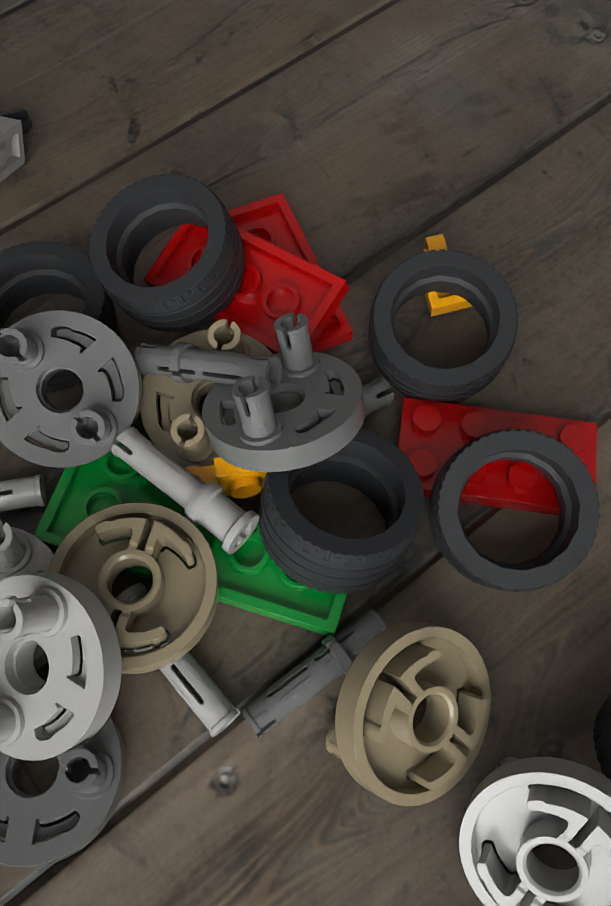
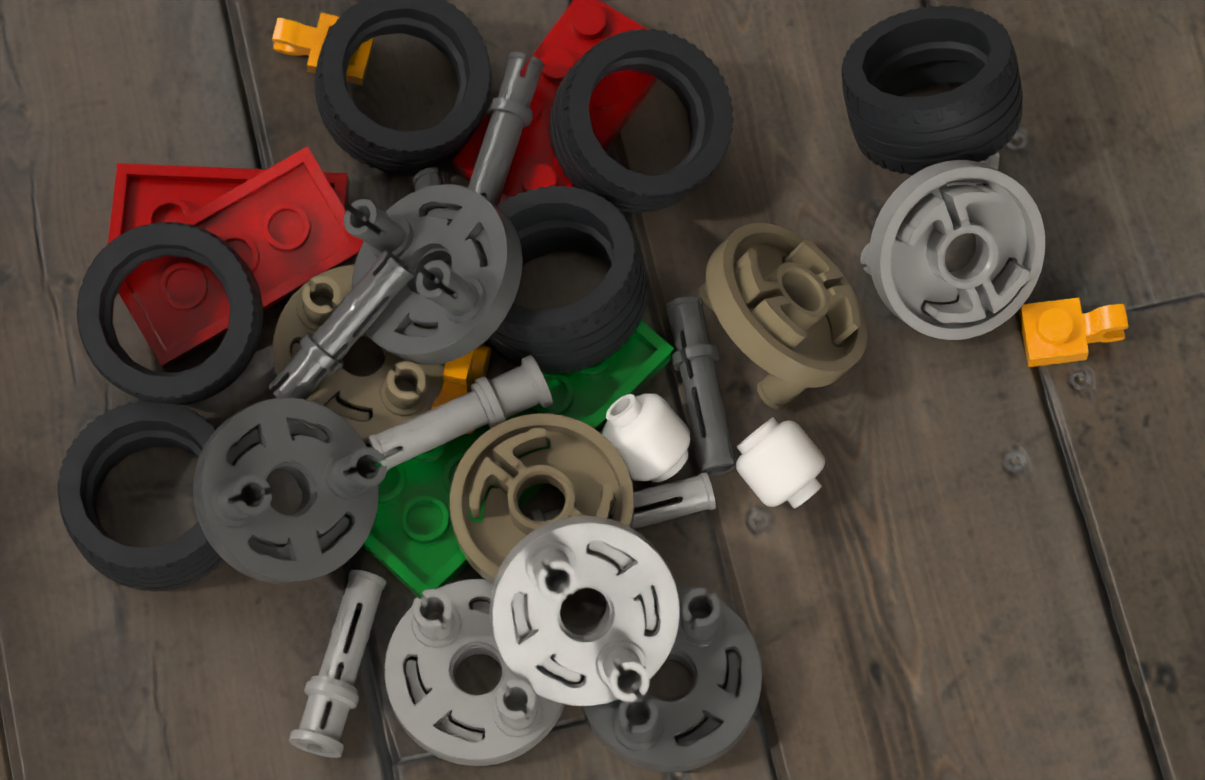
camera: 60 degrees left, 5 degrees up
(242, 646) = (647, 436): none -> white head
(274, 777) = (780, 463): none -> white head
(455, 412) = (508, 117): none -> dark grey pin

